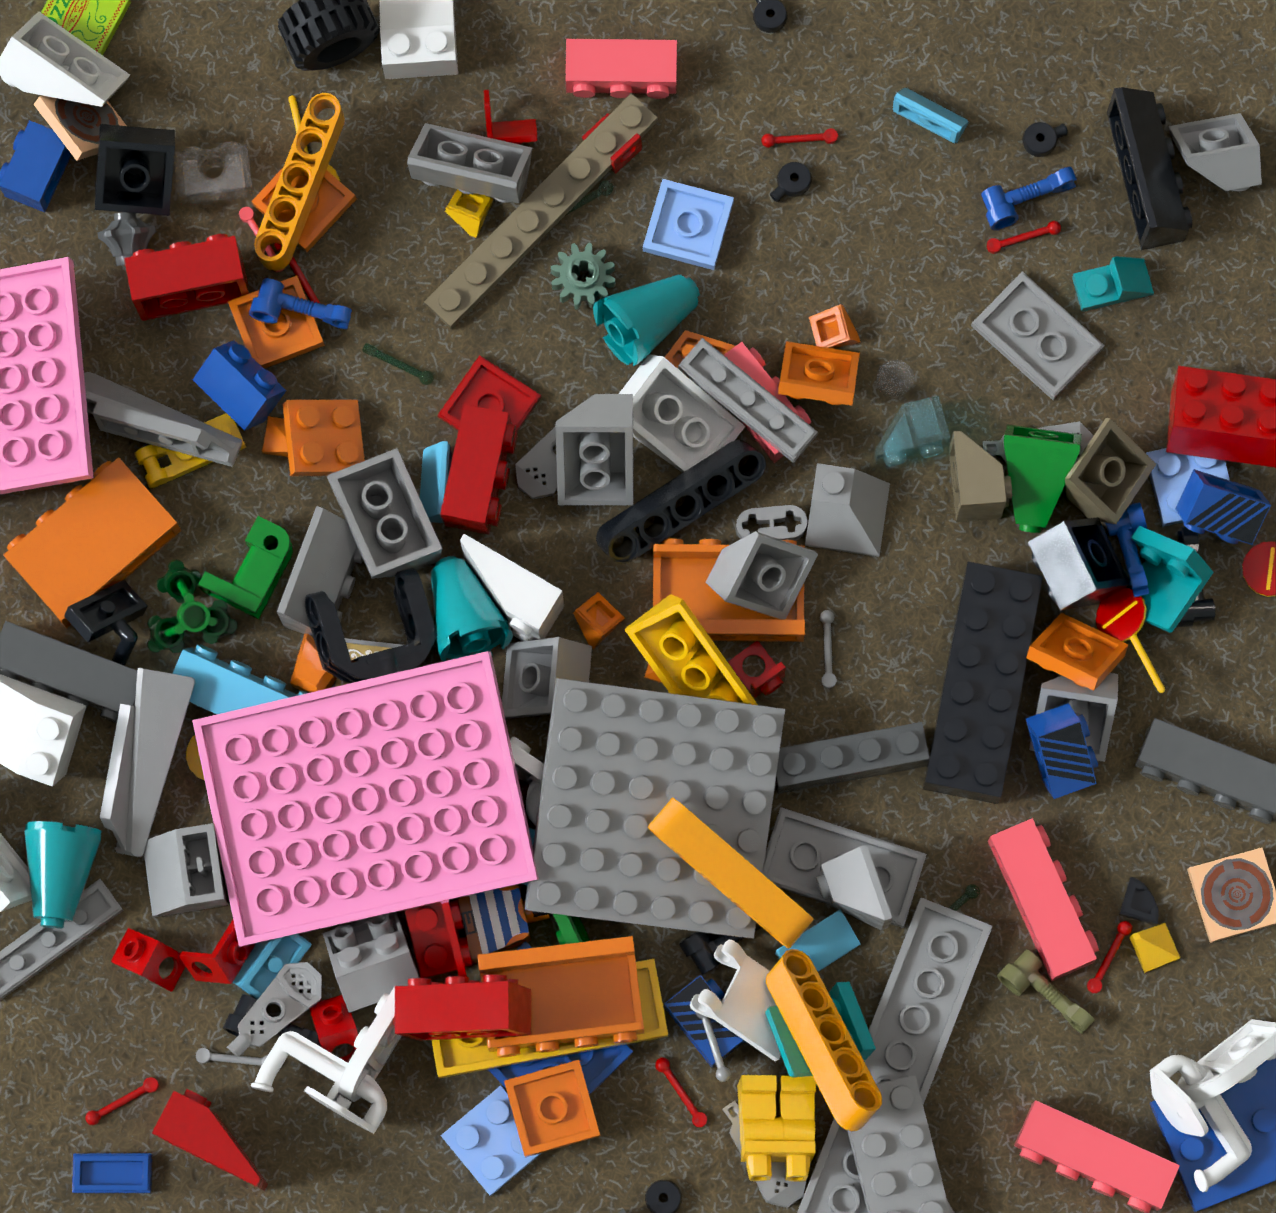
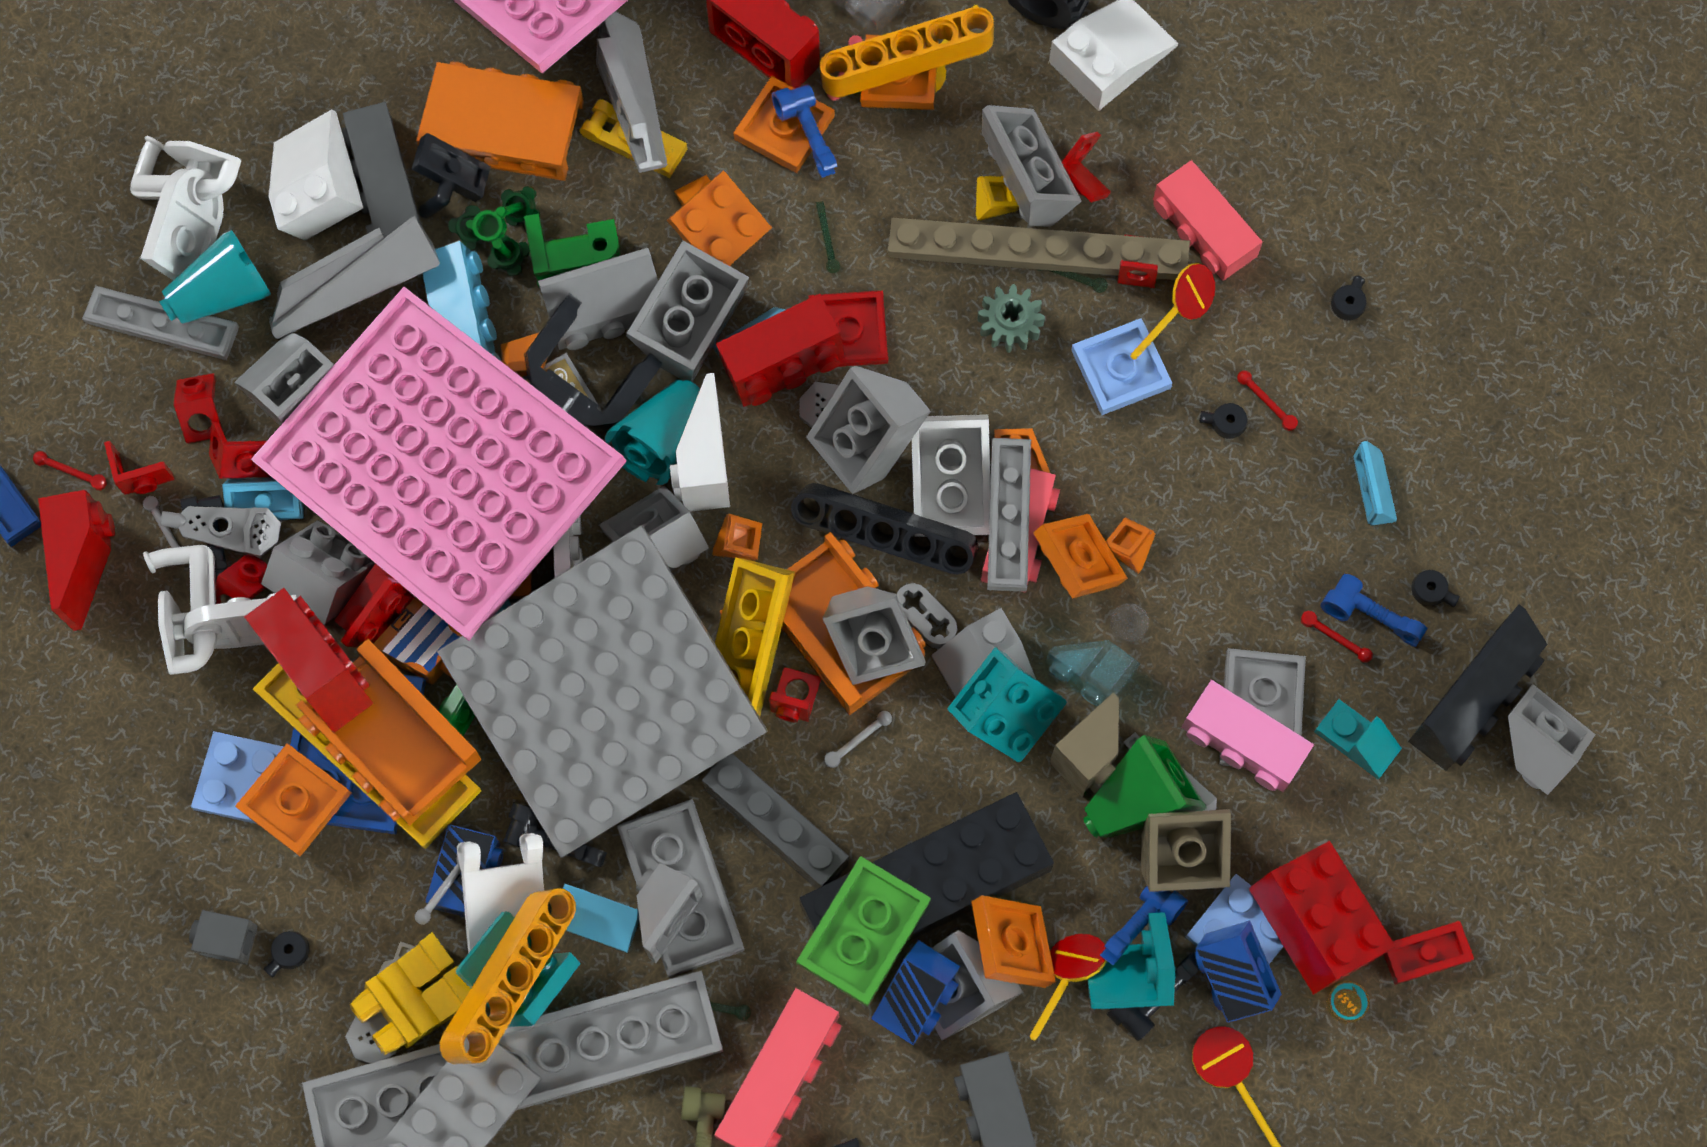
camera: 50 degrees right, 5 degrees down
(181, 1050) = (139, 480): none -> red bracket
(239, 384) = (710, 131): blue brick -> none
(296, 269) = (838, 116): red piece -> none
(645, 316) = (1018, 387): teal cone -> none
(676, 130) = (1191, 299): none -> red piece
(699, 1118) = (379, 929): red hinge -> none
(730, 873) = (591, 791): light orange beam -> none
(893, 519) = (1006, 706): none -> teal bracket
(992, 752) = (863, 931): none -> bright green plate
(1054, 363) = (1246, 737): none -> bright pink brick
(1078, 563) = (1089, 885): brick -> none

